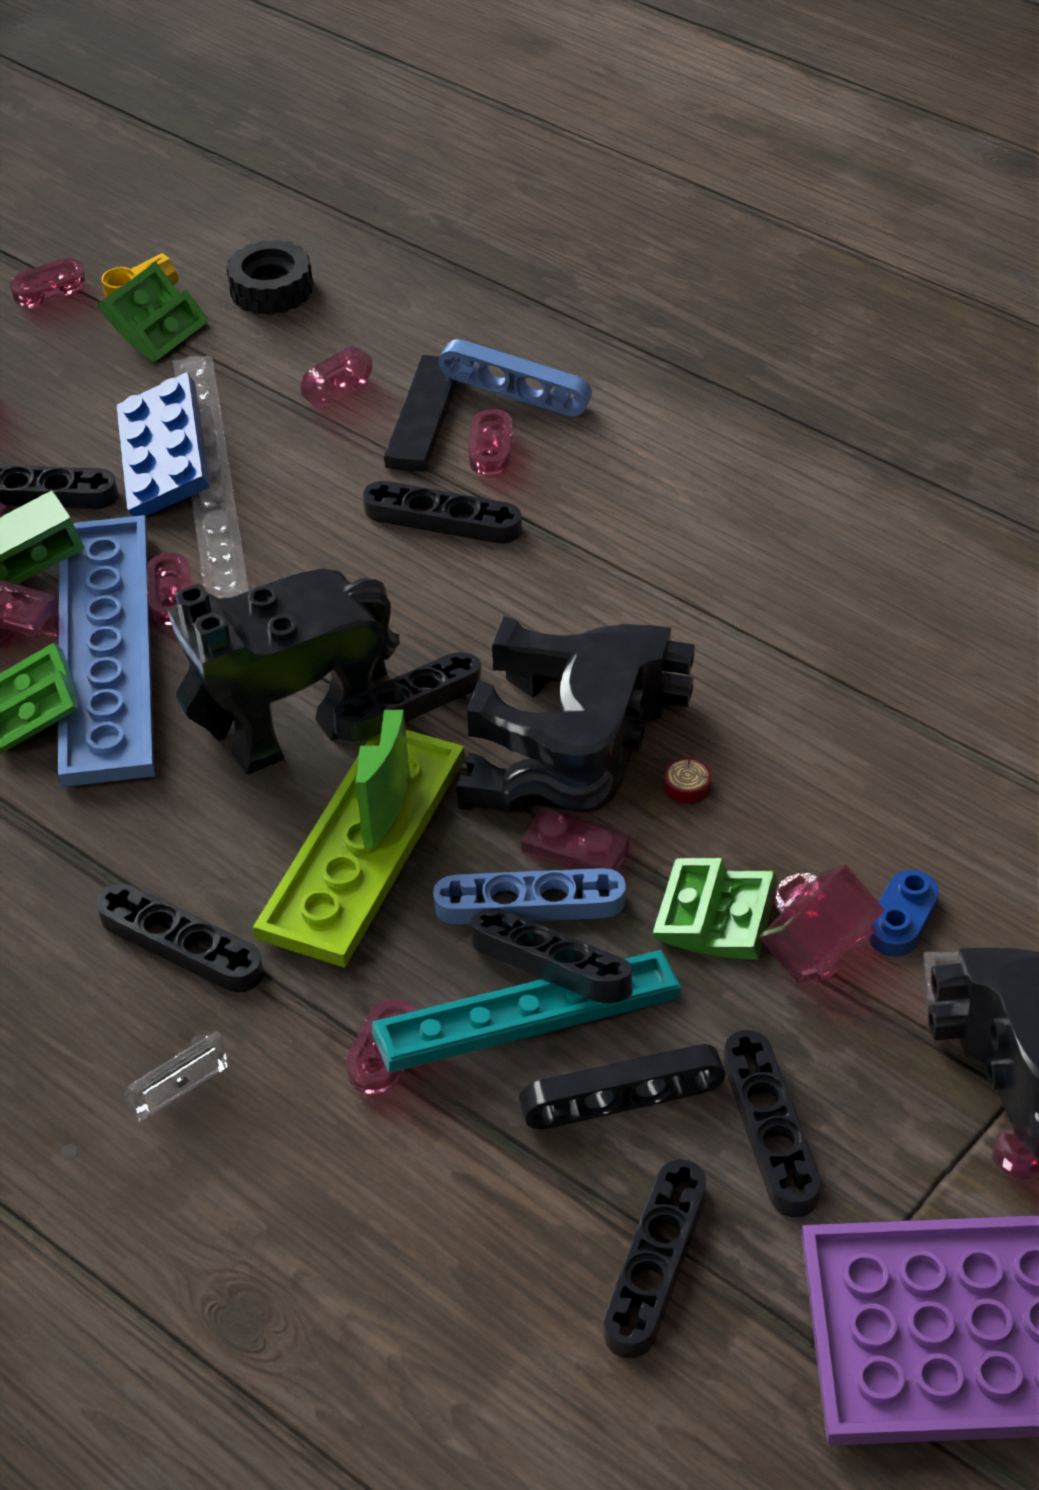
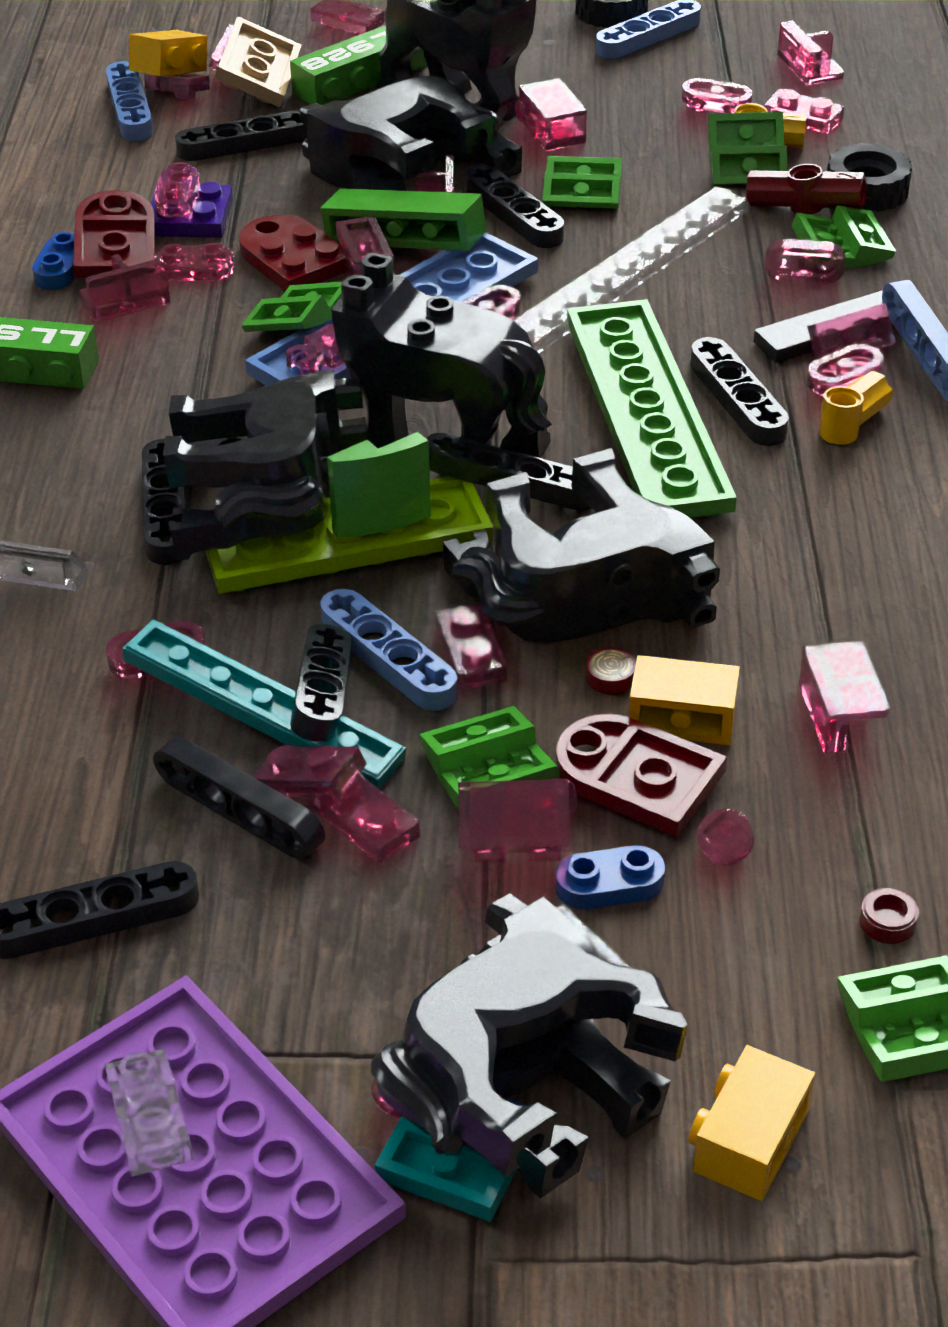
camera: 50 degrees right, 5 degrees down
(59, 428) = (582, 182): none -> bright green slope
(60, 200) = (808, 54): none -> clear pink panel
(116, 710) = (318, 349): none -> clear pink plate
(127, 250) = (820, 112): none -> clear pink plate
(162, 446) = (619, 227): plate -> none
(250, 316) = (806, 189): none -> dark red piece
(263, 817) = (267, 454): none -> black piece
(320, 334) = (852, 230): none -> bright green slope
(416, 571) = (650, 409): none -> plate
(455, 411) = (863, 326): none -> clear pink plate
(541, 466) = (851, 406): none -> yellow piece
(642, 1022) = (311, 770): none -> clear pink plate
(702, 1017) = (369, 819): none -> clear pink plate
(770, 758) = (685, 698): none -> brick
(771, 1121) = (284, 903): black beam -> none
(816, 828) = (638, 770): none -> plate
(847, 671) = (840, 688): none -> clear pink panel
(926, 823) = (725, 836): none -> clear pink tile
(946, 1327) = (148, 1112): none -> clear slope

